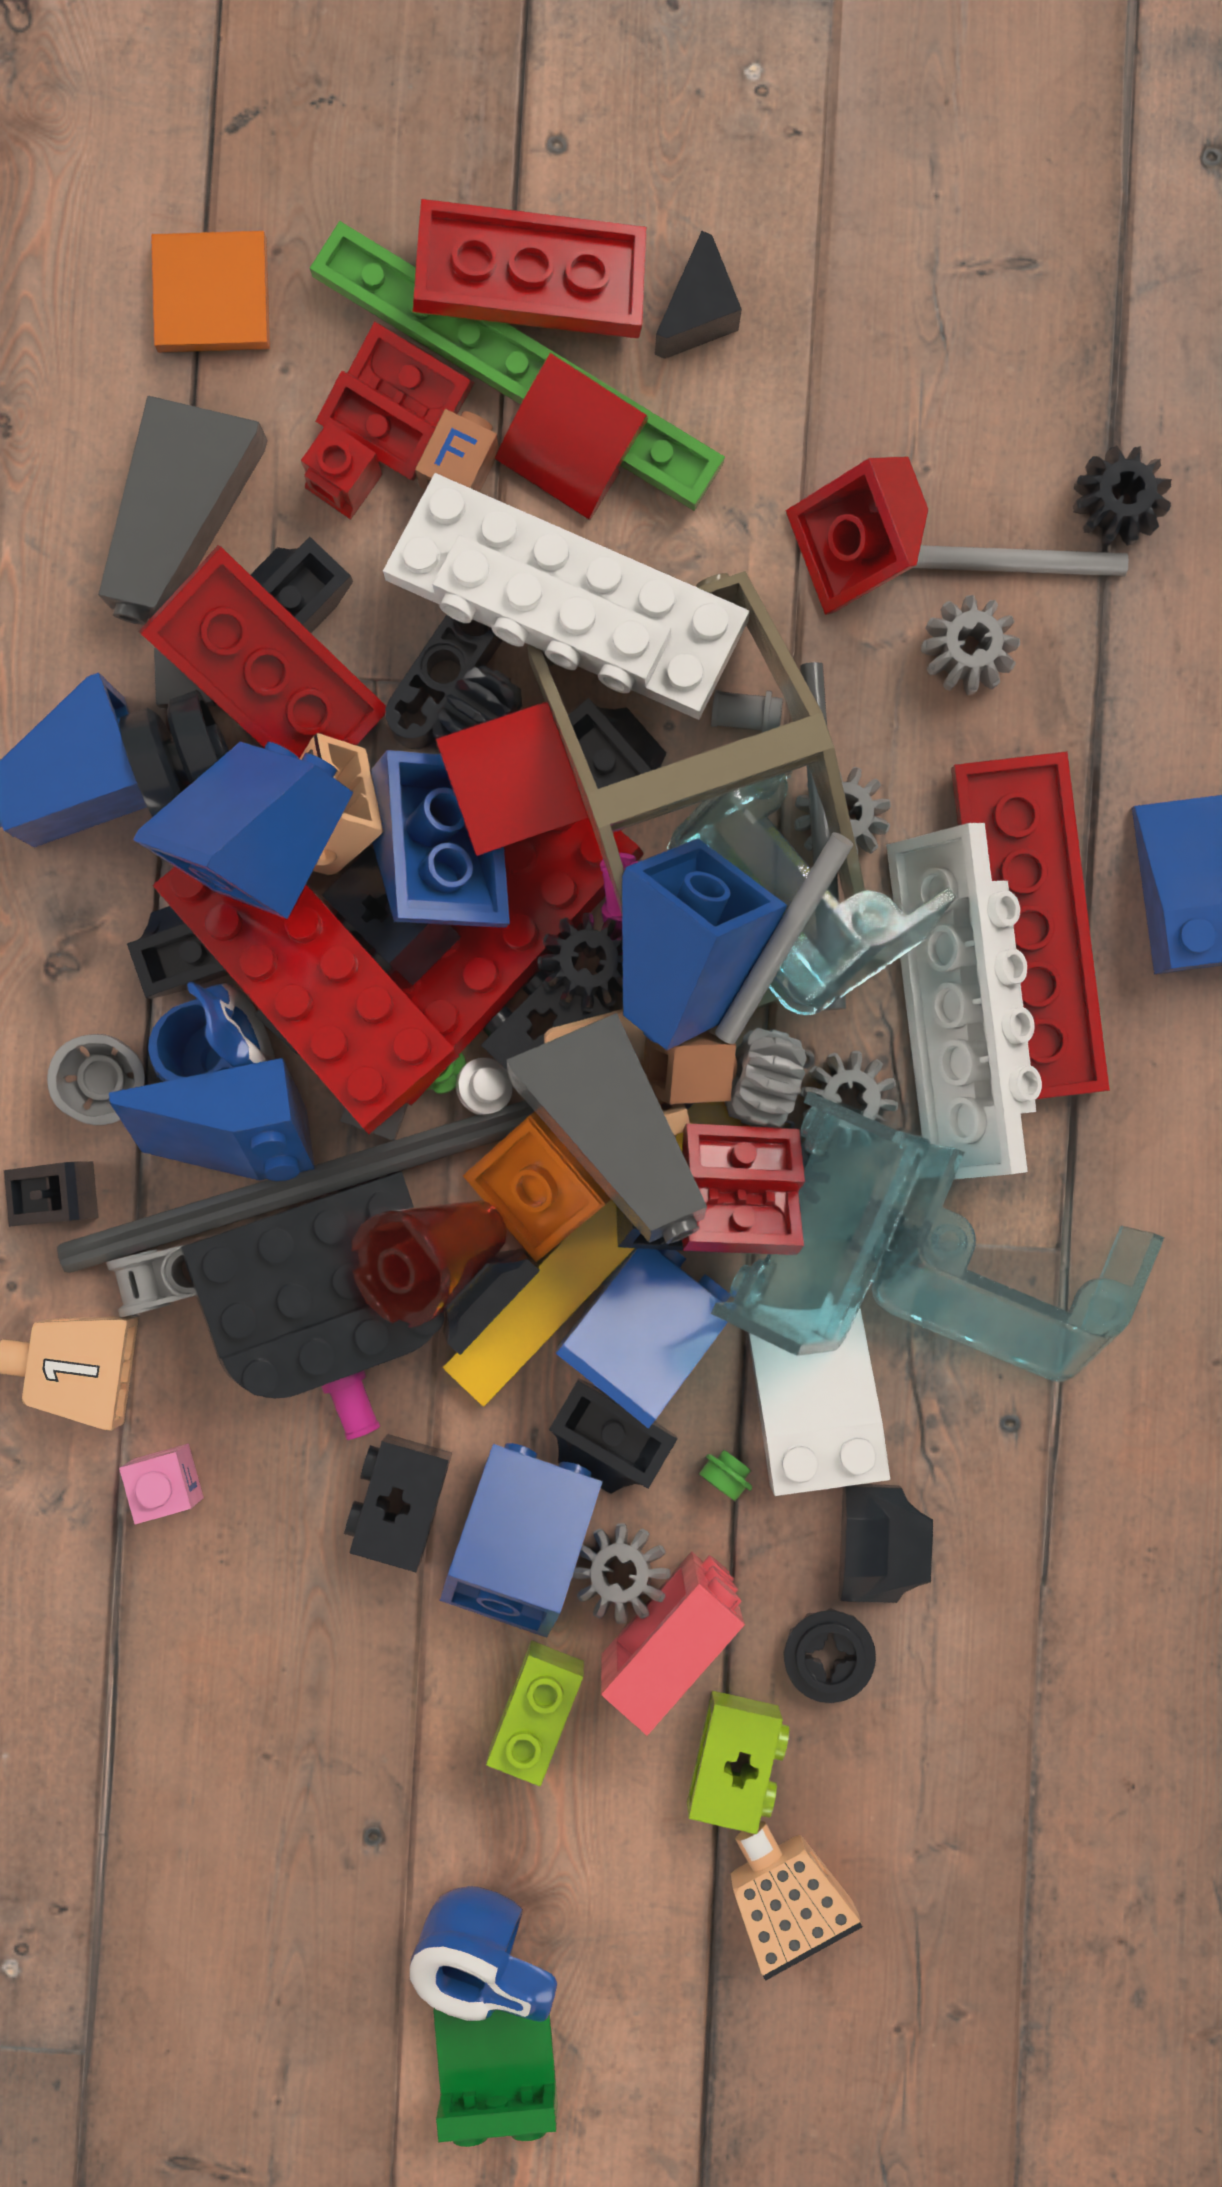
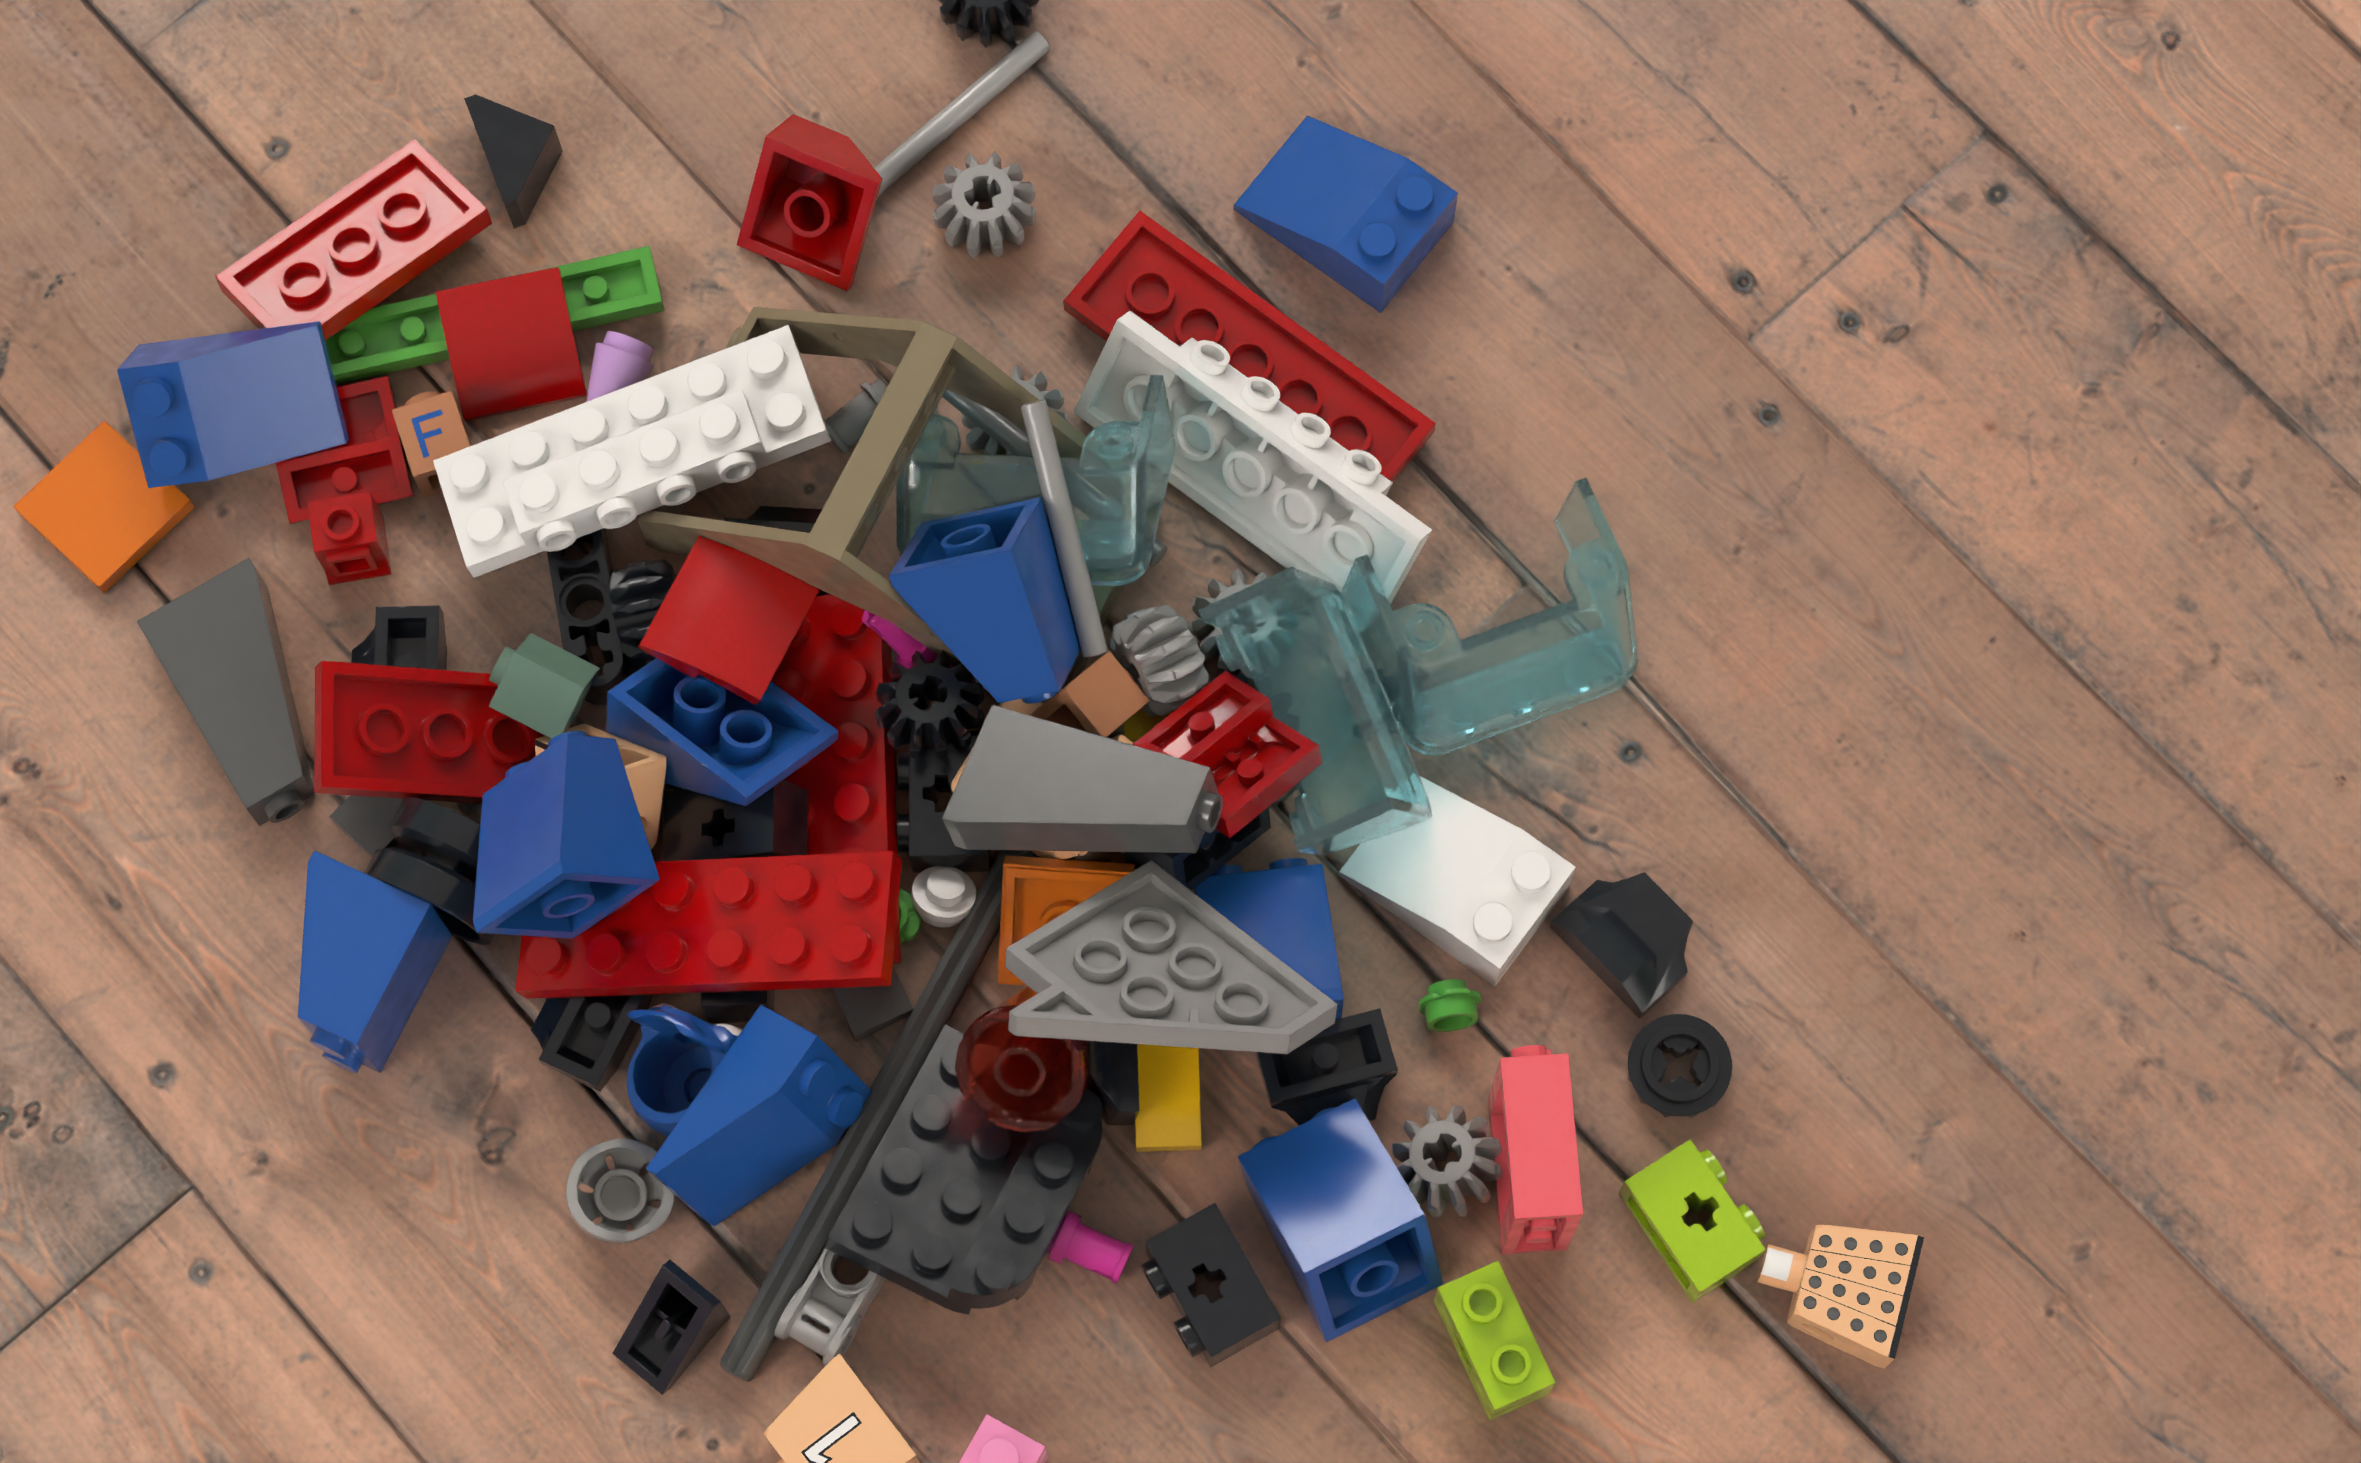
camera: 40 degrees left, 15 degrees down
(343, 298) = (231, 402): none -> blue slope
(353, 701) = (541, 685): none -> sand green brick
(545, 1300) = (1160, 970): none -> light grey wing
(620, 524) = (618, 364): none -> lavender cone

